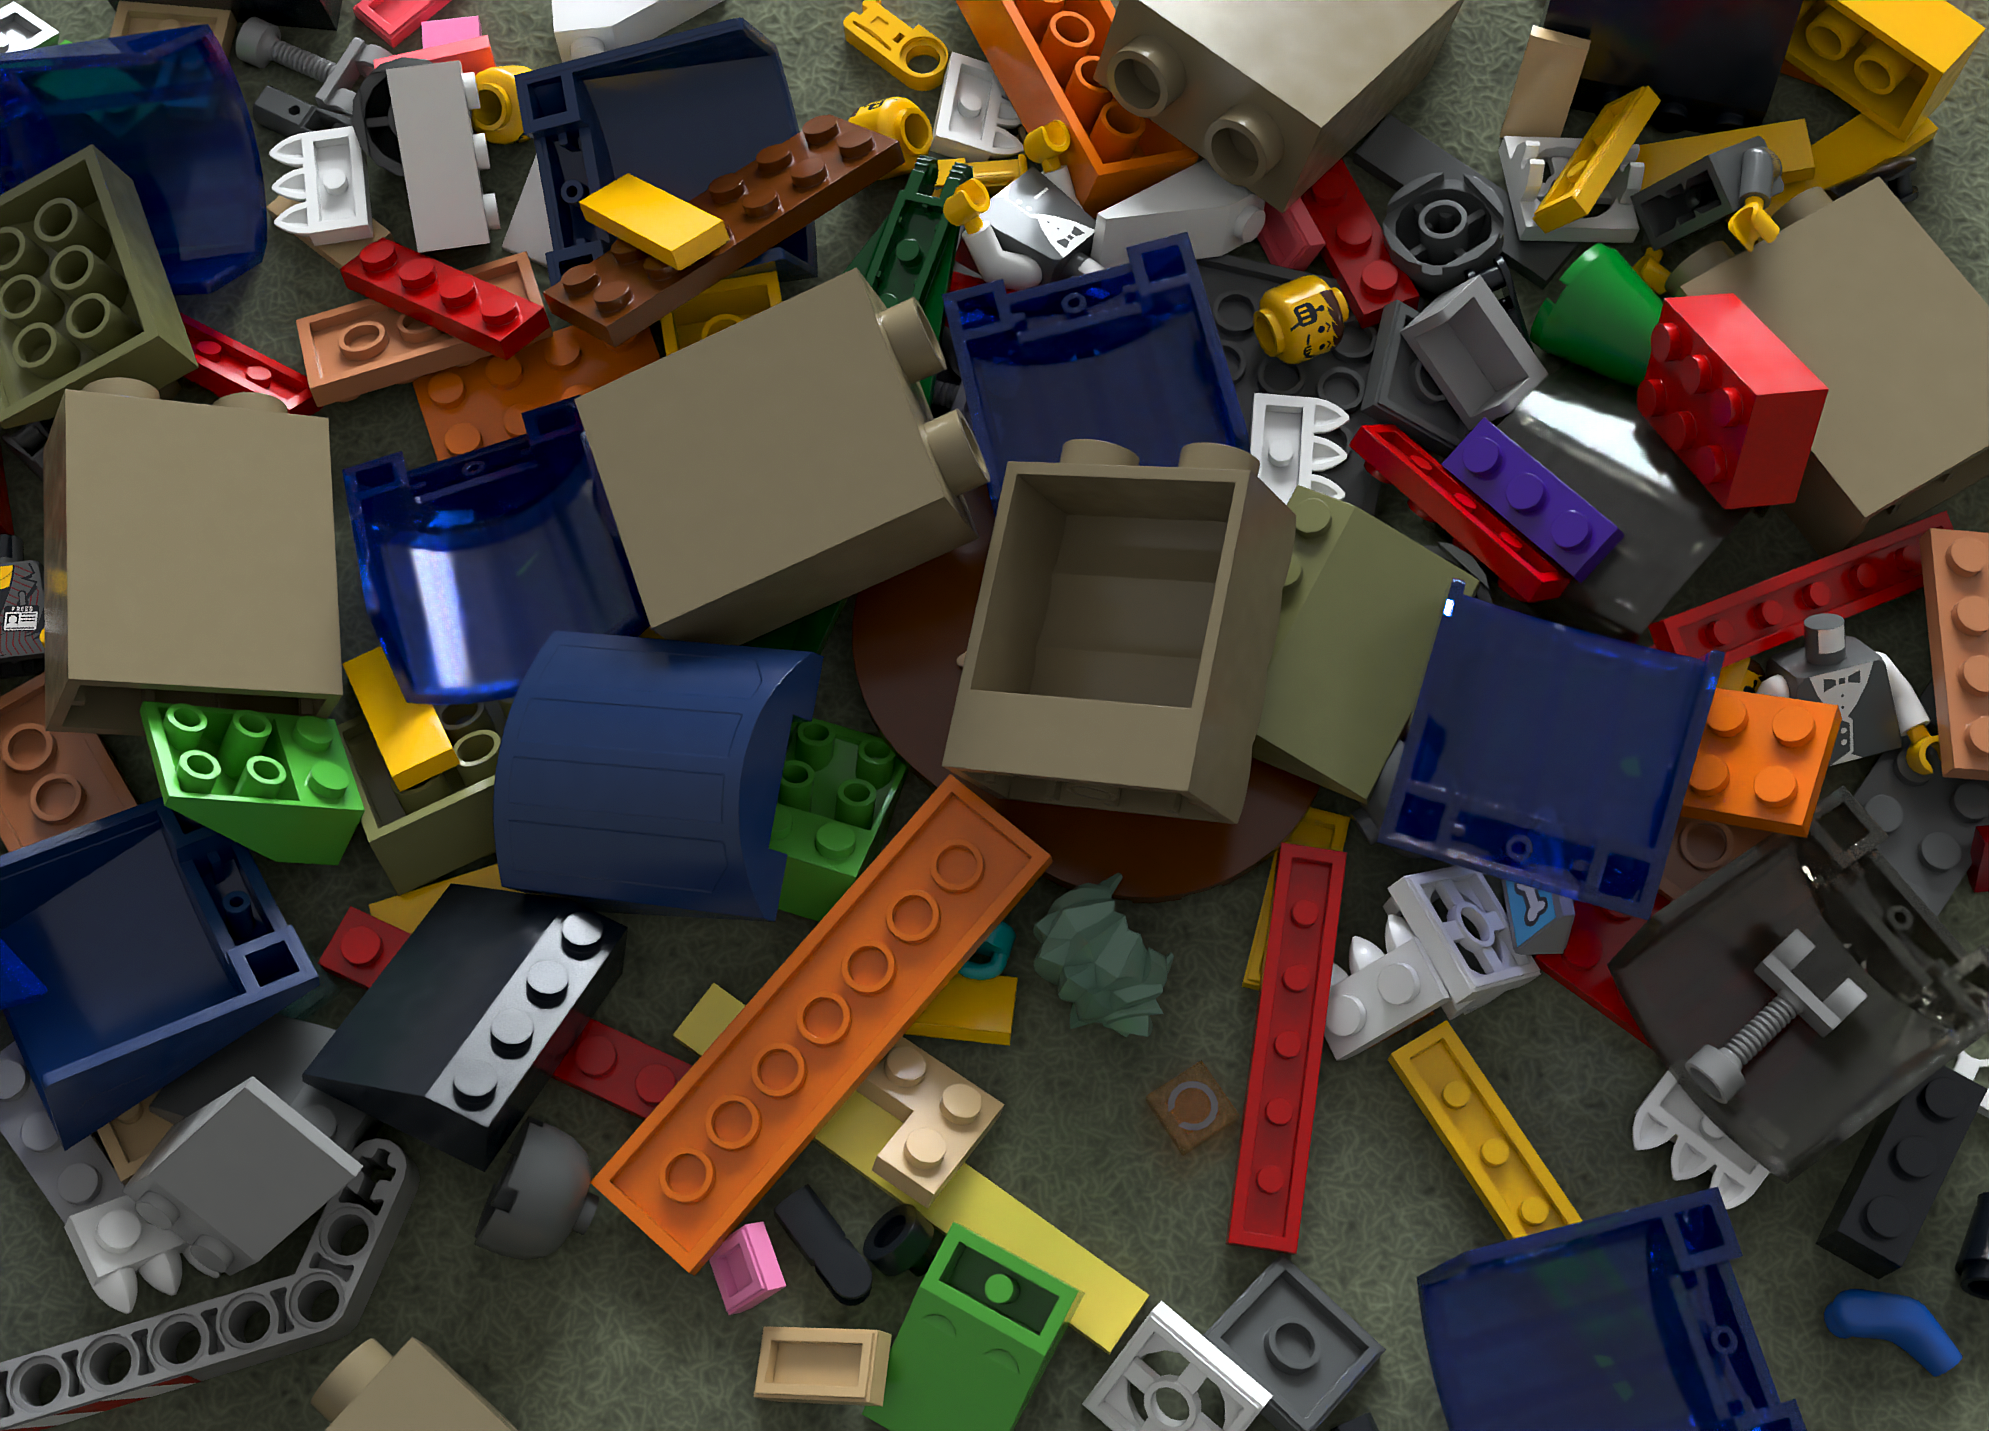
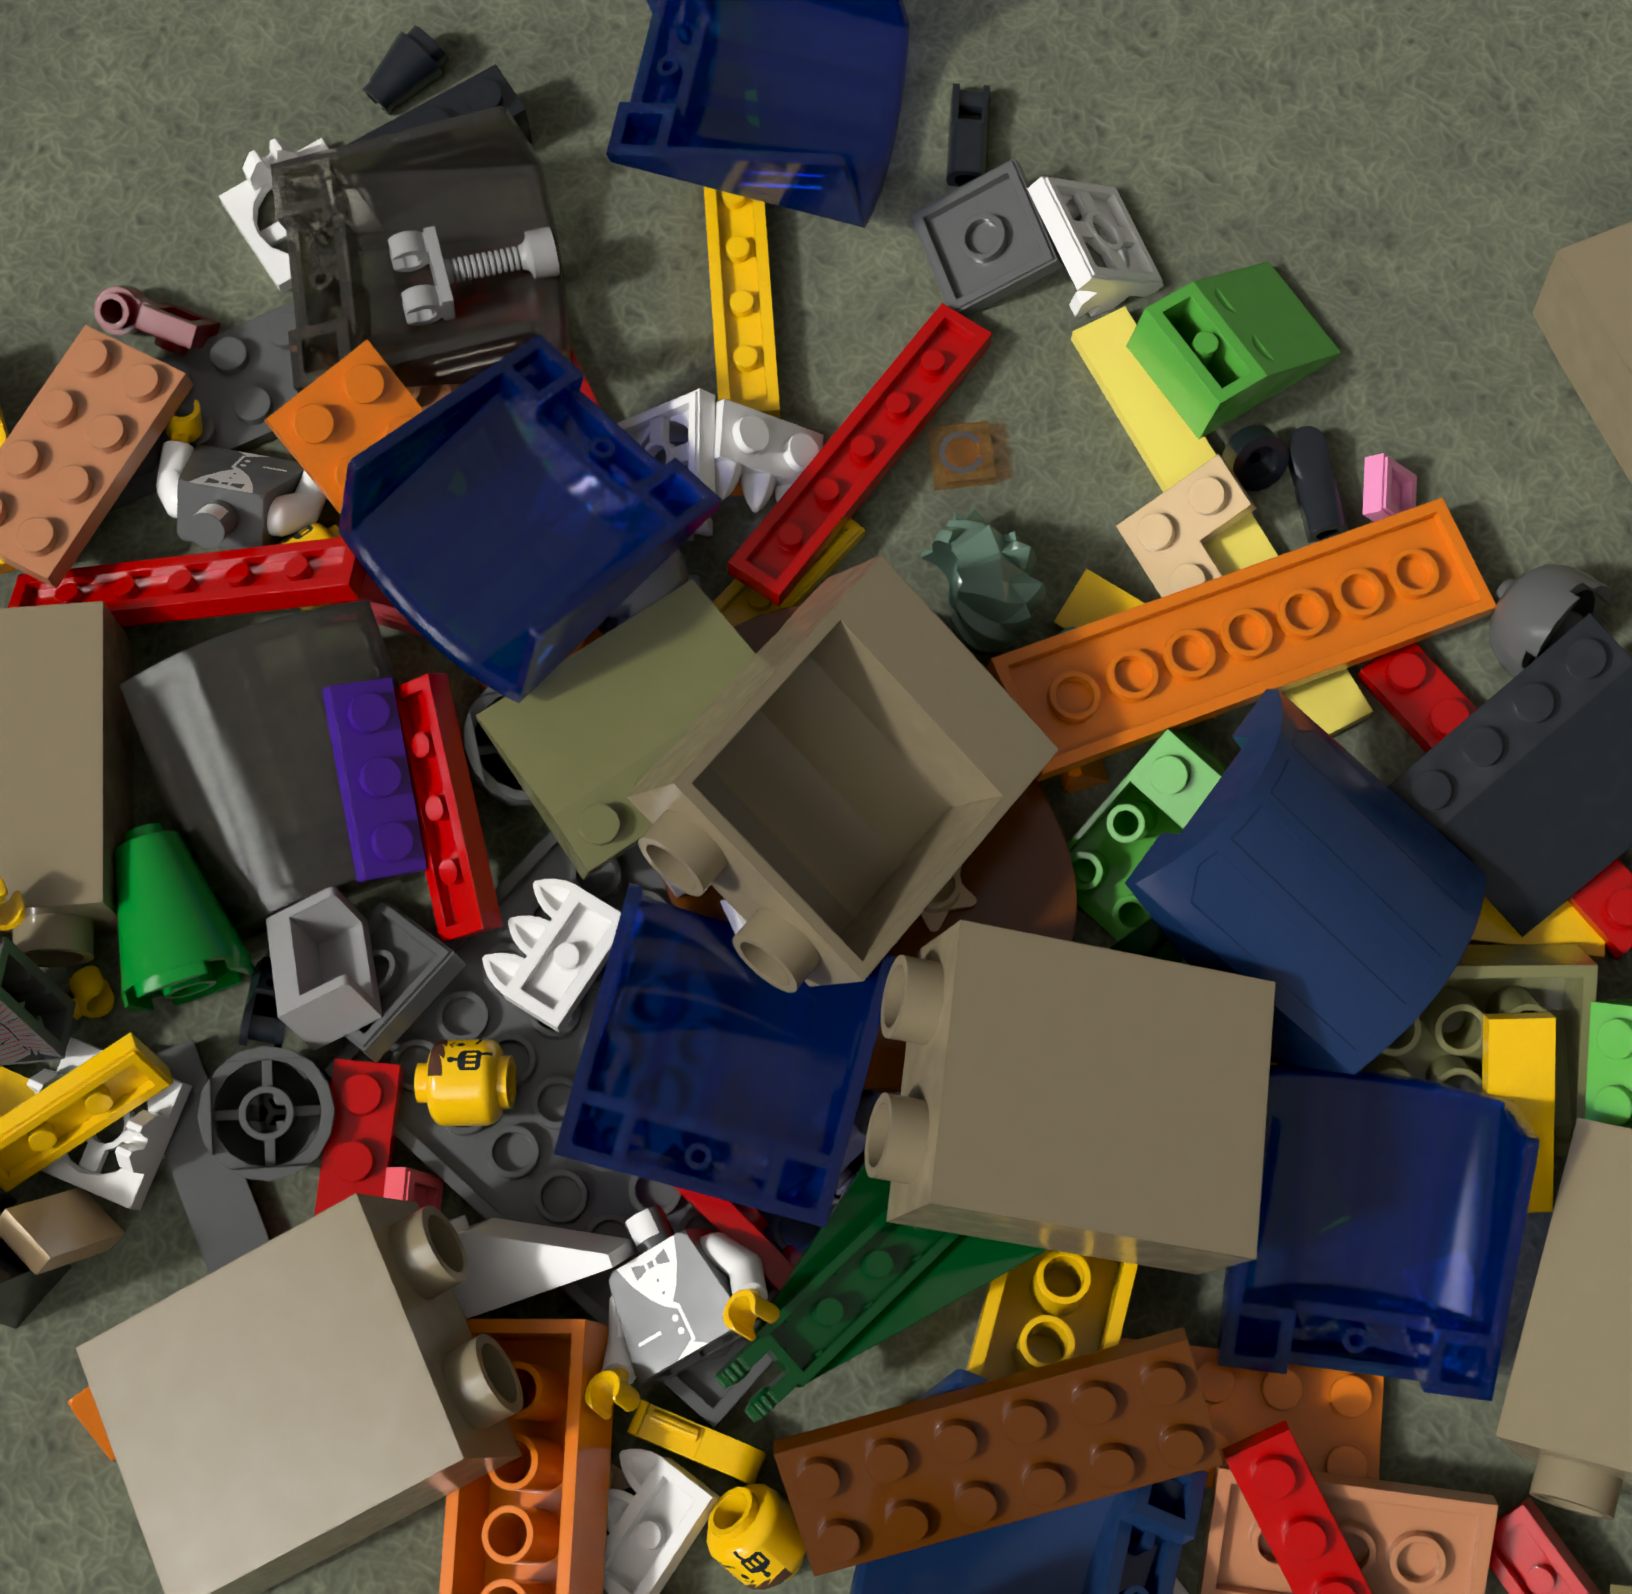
camera: 155 degrees left, 5 degrees up
(654, 221) = (1079, 1471): yellow tile -> none
(823, 1365) = (1360, 389): tan tile -> none
(1697, 1142) = (584, 267): white plate -> none
(1731, 400) = (153, 737): red brick -> none
(1893, 1319) = (519, 64): blue arm -> none

